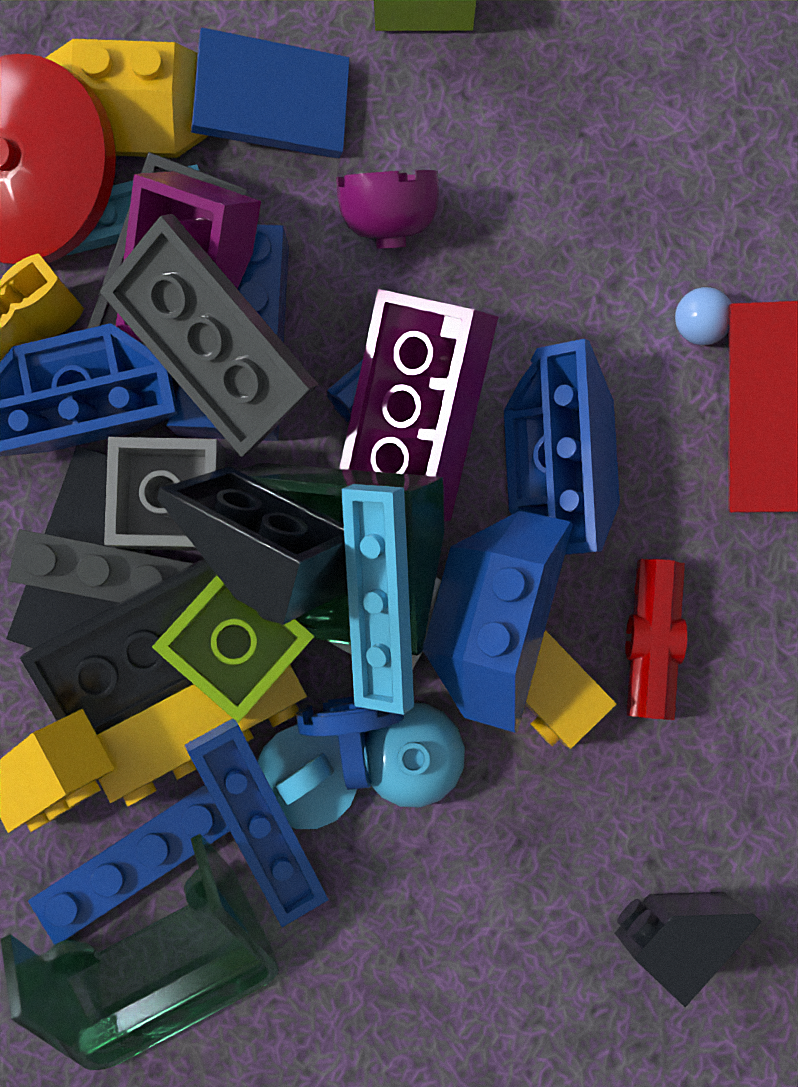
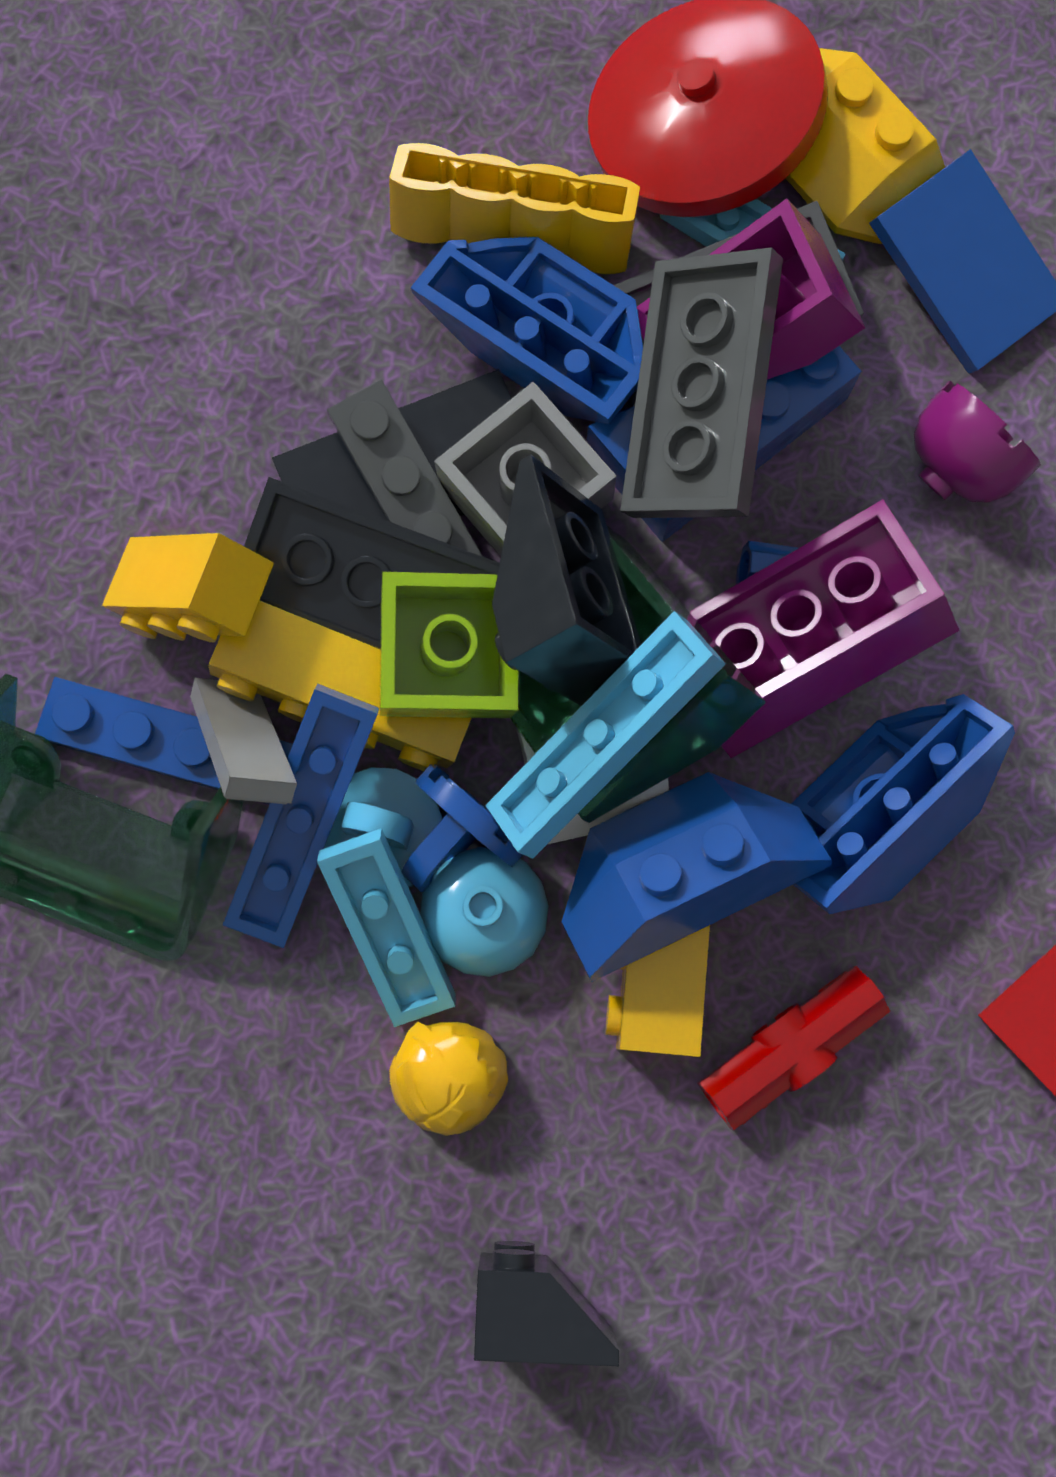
camera: 45 degrees right, 5 degrees down
(182, 825) = (242, 745): none -> light grey tile
(372, 828) = (386, 927): none -> medium azure plate
(494, 865) = (448, 1076): none -> yellow hair

